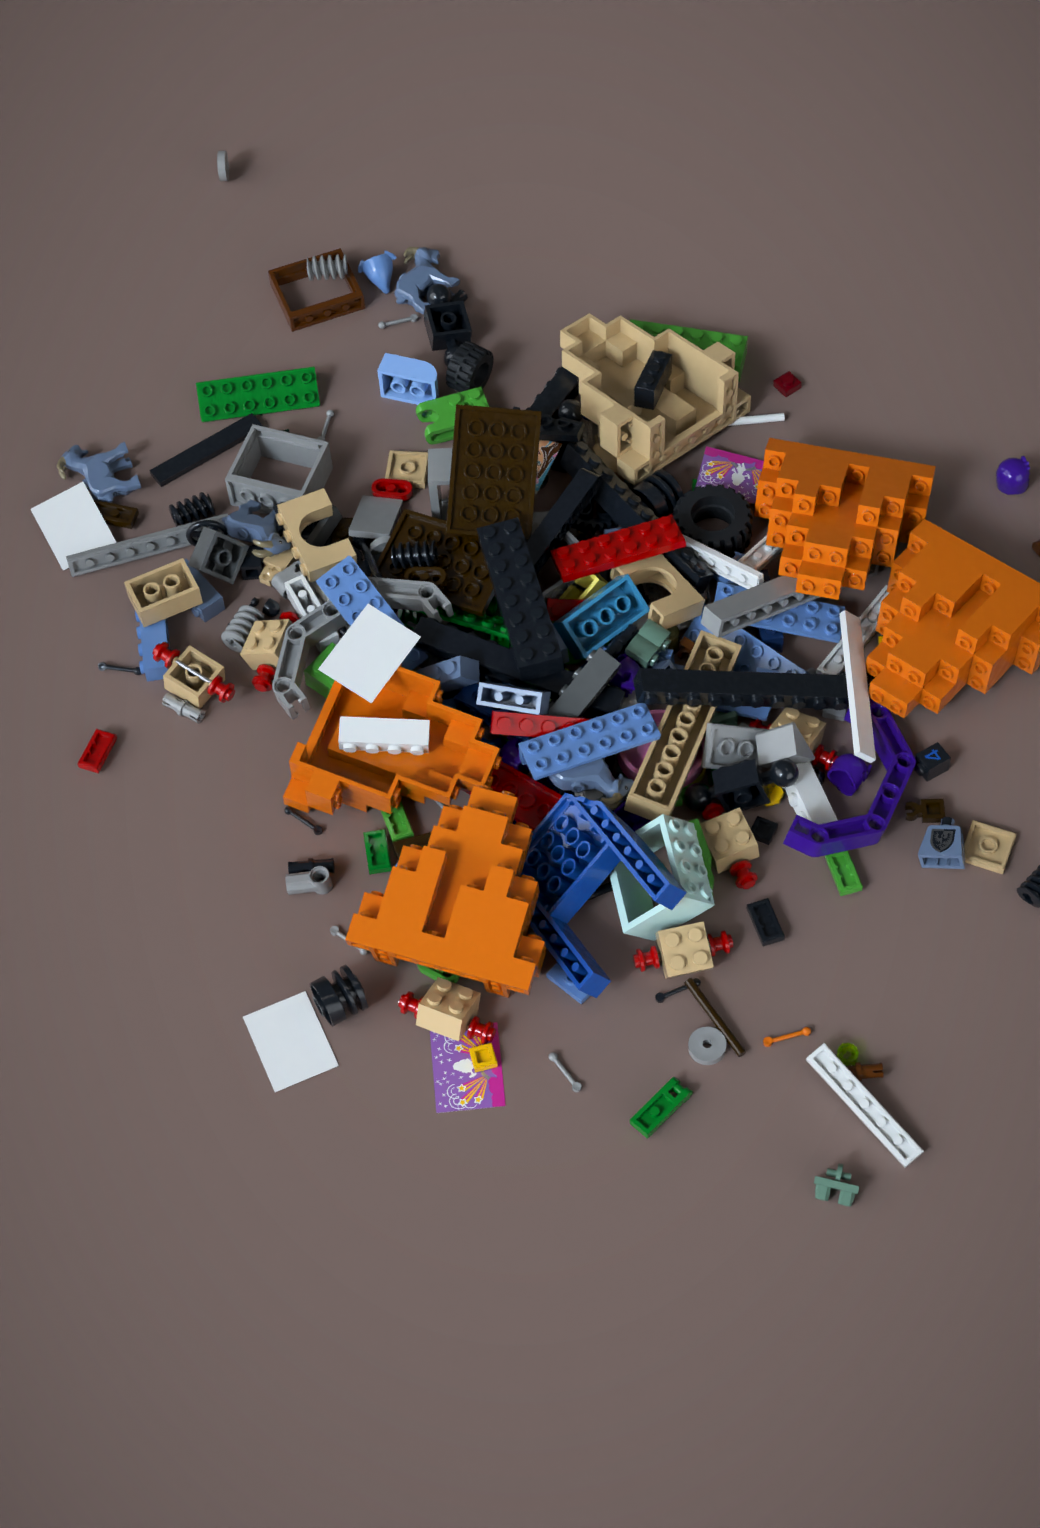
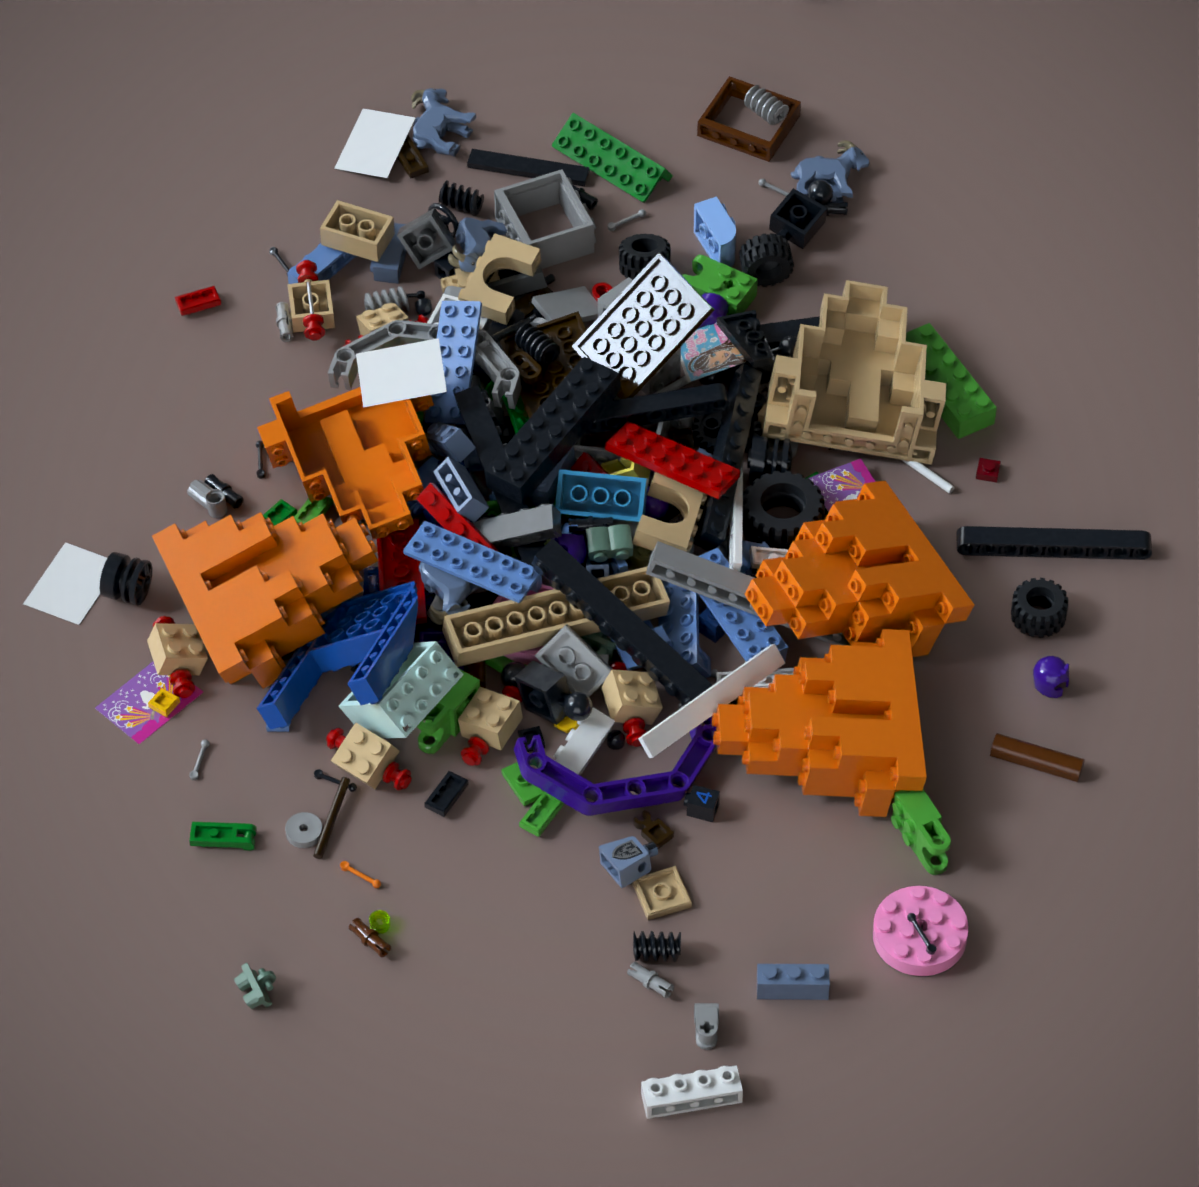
camera: 45 degrees right, 5 degrees down
(133, 549) = (388, 190): light grey tile -> none
(379, 270) = (808, 140): medium blue hat -> none
(382, 438) = (639, 250): none -> black tyre
(384, 735) = (357, 441): white brick -> none
(653, 380) = (871, 373): black brick -> none
(782, 743) = (604, 691): light grey slope -> none
(800, 865) = (524, 790): none -> bright green plate
(848, 773) = (633, 755): dark purple helmet -> none
(864, 1105) = (341, 958): white tile -> none
(892, 393) = (1054, 542): none -> black beam
(951, 428) = (1038, 621): none -> black tyre

